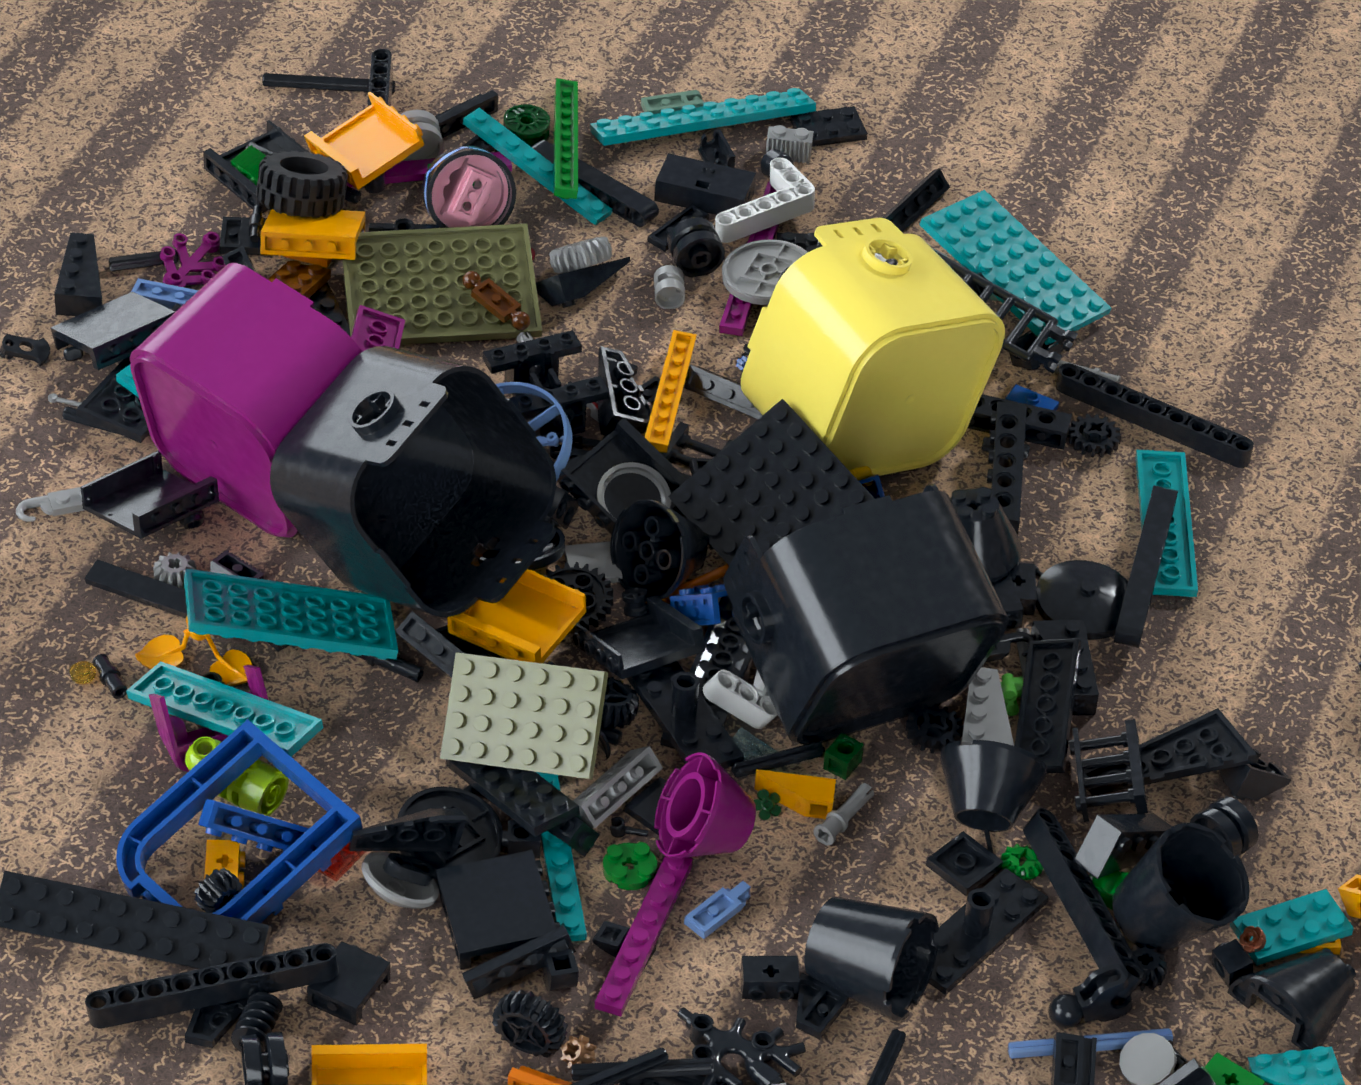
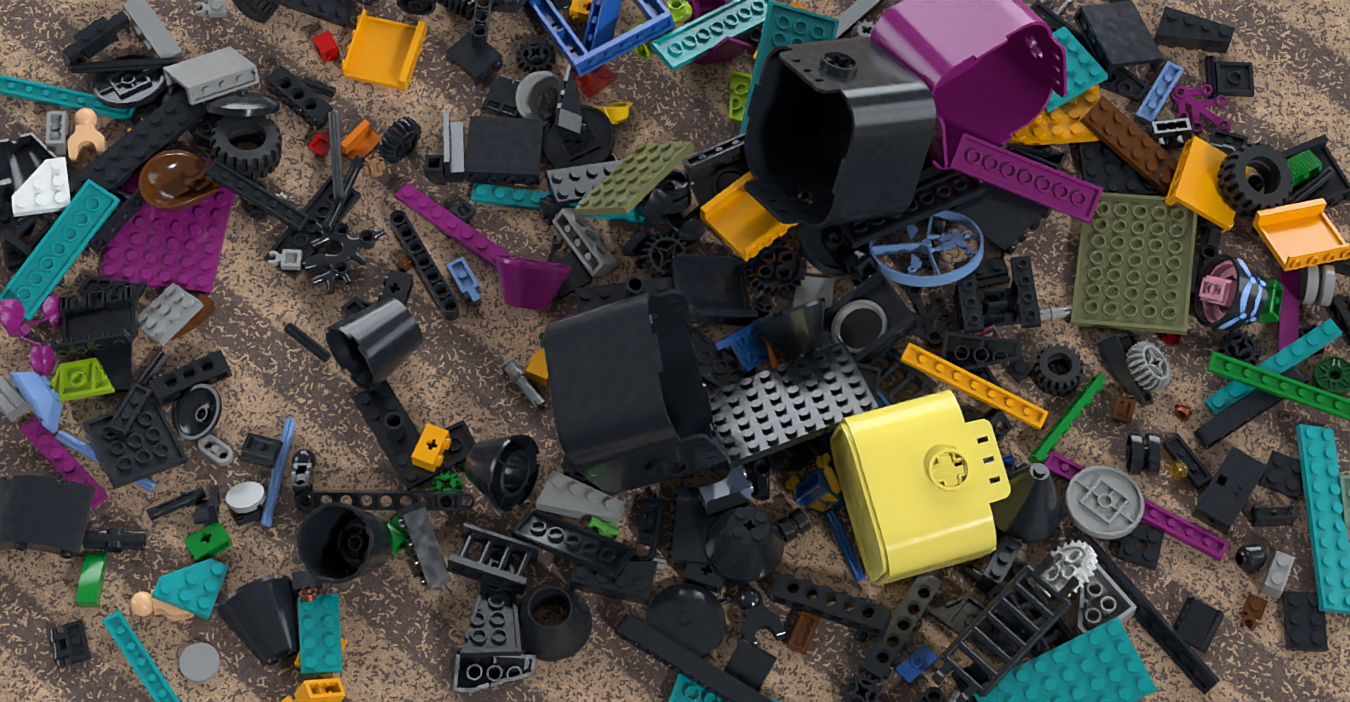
camera: 110 degrees right, 20 degrees up
(136, 236) = (1234, 79): none -> black plate
(314, 678) = (739, 91): none -> lime wing
(323, 912) = (536, 56): none -> black gear
(386, 798) = (616, 112): none -> yellow piece
(402, 932) = (502, 97): none -> black plate
(496, 300) = (1101, 290): reddish brown plate -> none
(528, 198) = (1249, 350): none -> black gear
(612, 327) = (1058, 383): none -> black tyre
(618, 234) = (1182, 411): none -> copper plate
(634, 276) = (1123, 407): none -> reddish brown bracket
(635, 853) = (519, 231): green plate -> none
(655, 150) = (1283, 475): none -> black plate
(669, 287) = (1105, 426): light grey wheel -> none
(670, 318) = (1072, 413): none -> green plate
(699, 405) = (969, 413): none -> black tile
(713, 958) = (427, 272): none -> black beam
(721, 982) = (404, 265): none -> reddish brown plate
(792, 199) = (1192, 544): white beam -> none
(834, 163) = (1254, 609): none -> reddish brown plate
(872, 197) = (1198, 623): none -> black slope
(922, 478) = (845, 545): none -> blue axle
(989, 870) = (431, 438): none -> light orange brick
(1045, 496) = (803, 632): none -> reddish brown plate
(1053, 535) = (757, 616): none -> black piece
(1114, 528) = (750, 664): none -> black slope
(1150, 694) = (555, 641): none -> black cone
(1231, 821) = (415, 618): black wheel -> none

